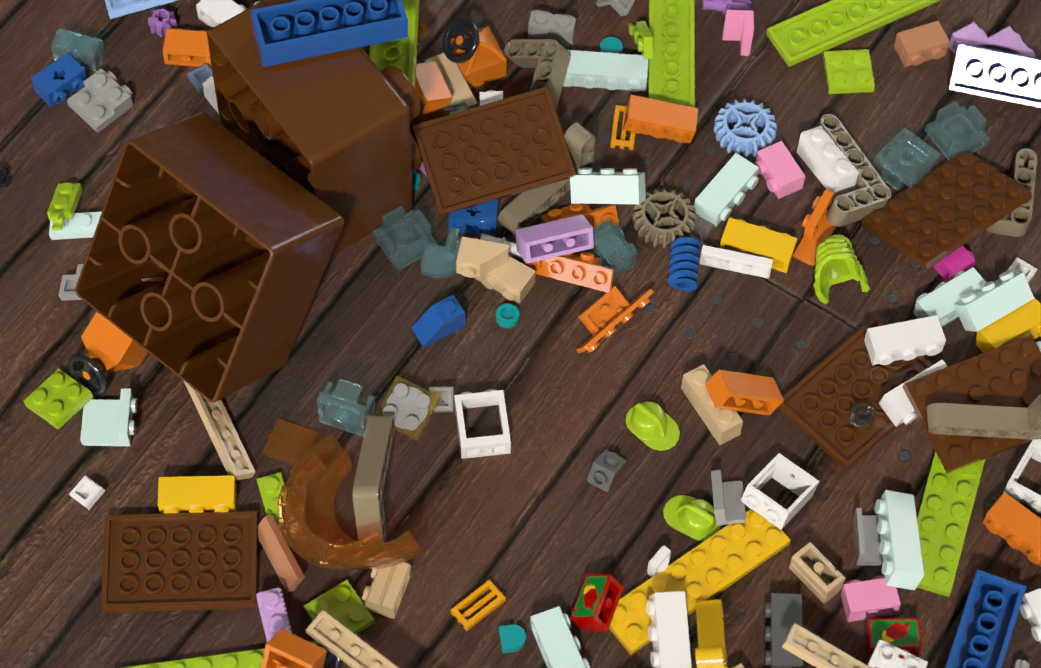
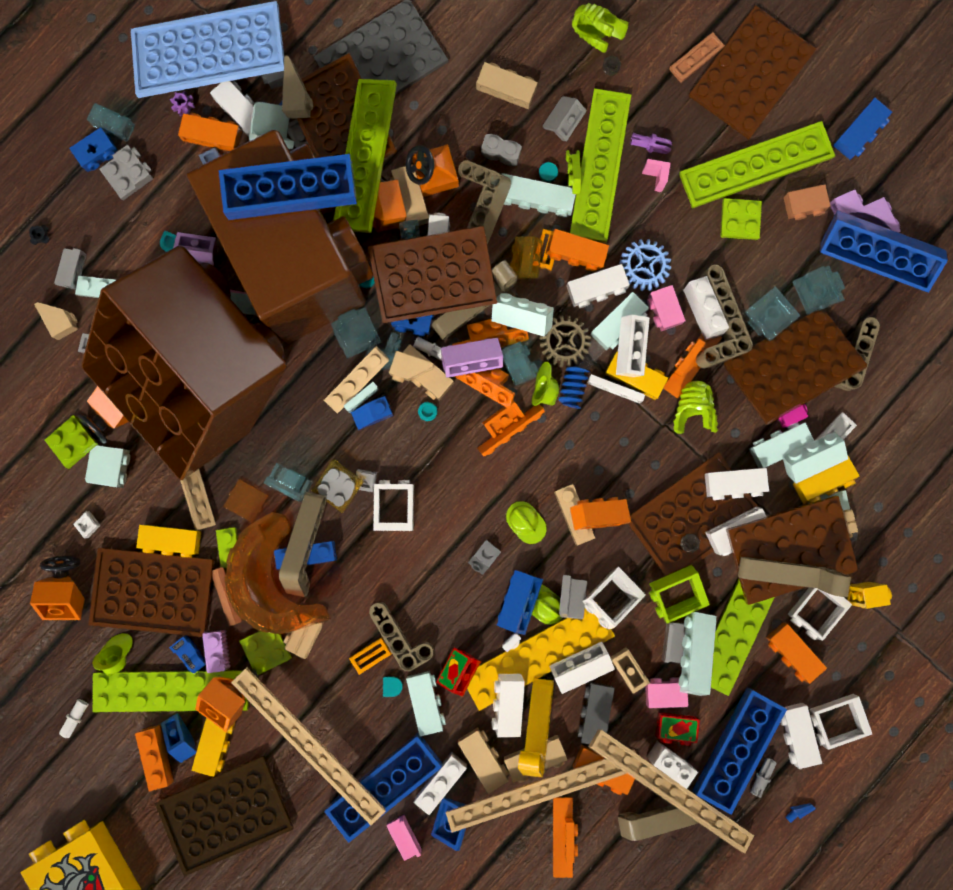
camera: 15 degrees right, 25 degrees up
(29, 264) = (58, 321): none -> tan slope
(35, 213) = (70, 268): none -> light grey panel
(60, 572) = (58, 595): none -> orange piece
(64, 204) = (87, 269): lime plate -> none
(139, 641) = (113, 654): none -> lime piece
(237, 628) = (189, 654): none -> blue leg
(398, 488) = (320, 553): none -> blue brick
(415, 284) = (356, 379): none -> tan plate
(421, 305) = (361, 397): none -> light aqua tile
(509, 572) = (397, 634): none -> dark tan beam
(604, 126) = (526, 257): none -> clear yellow brick
(650, 268) = (546, 387): none -> lime piece
(661, 511) = (519, 602): none -> blue brick
(692, 155) = (598, 286): none -> white brick
(747, 202) = (632, 346): none -> white brick
(755, 578) = (582, 667): none -> white brick
(880, 464) = (685, 607): none -> lime window

